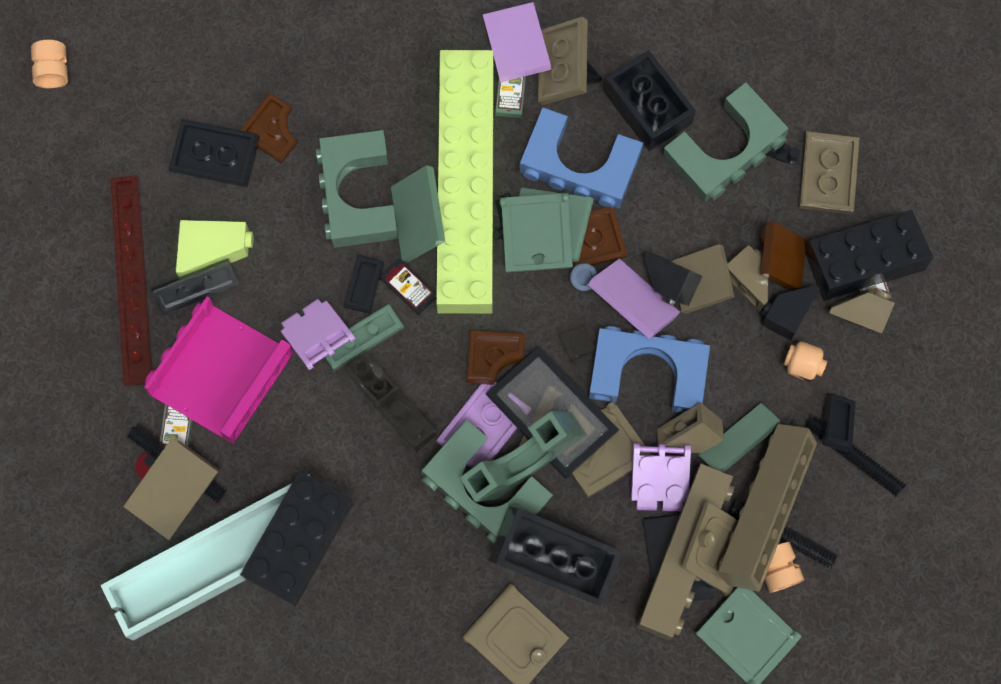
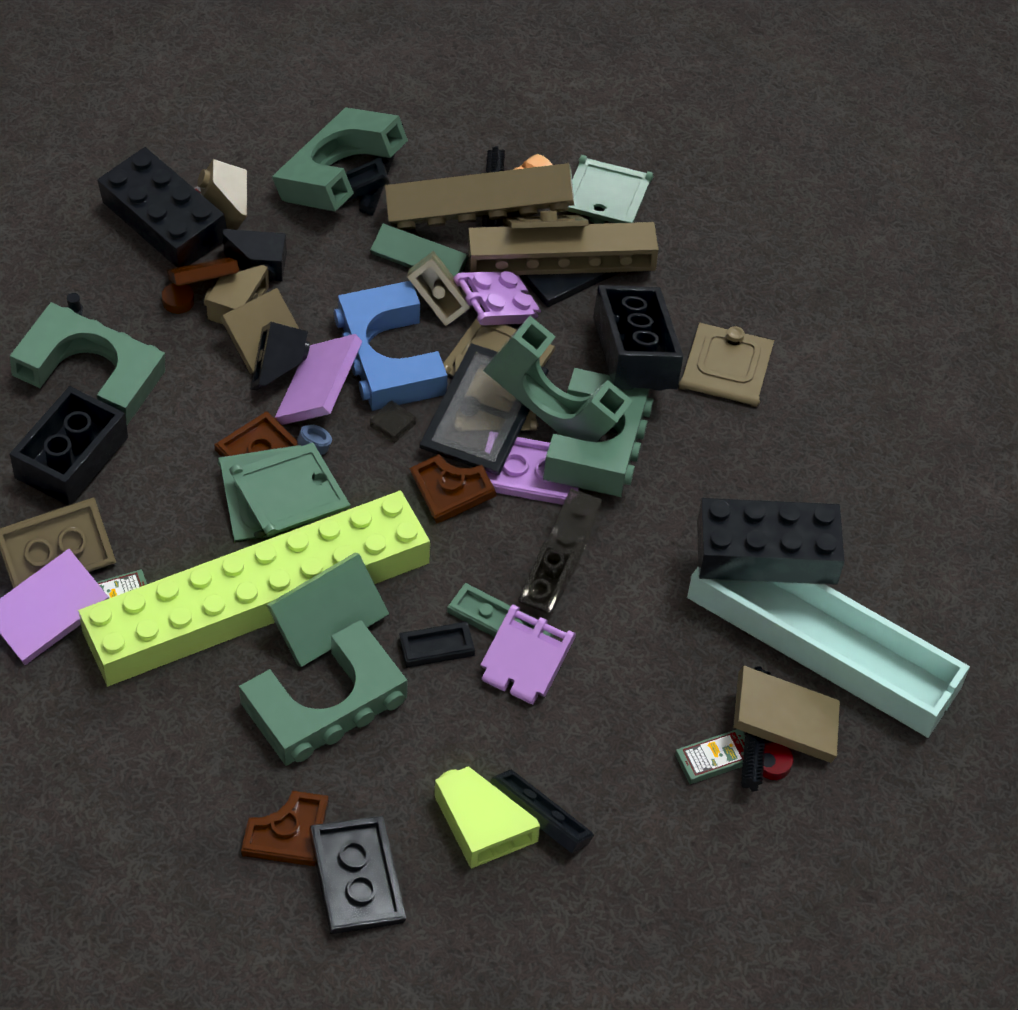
camera: 120 degrees left, 20 degrees down
(131, 280) = (565, 895): clear red tile -> none
(217, 371) = (625, 734): dark pink panel -> none
(408, 286) = (415, 598): tile -> none
(605, 185) = (190, 524): medium blue arch -> none
(805, 361) = (308, 224): light nougat head -> none
(829, 172) = (88, 271): dark tan tile -> none
(862, 380) = (308, 175): none -> sand green arch

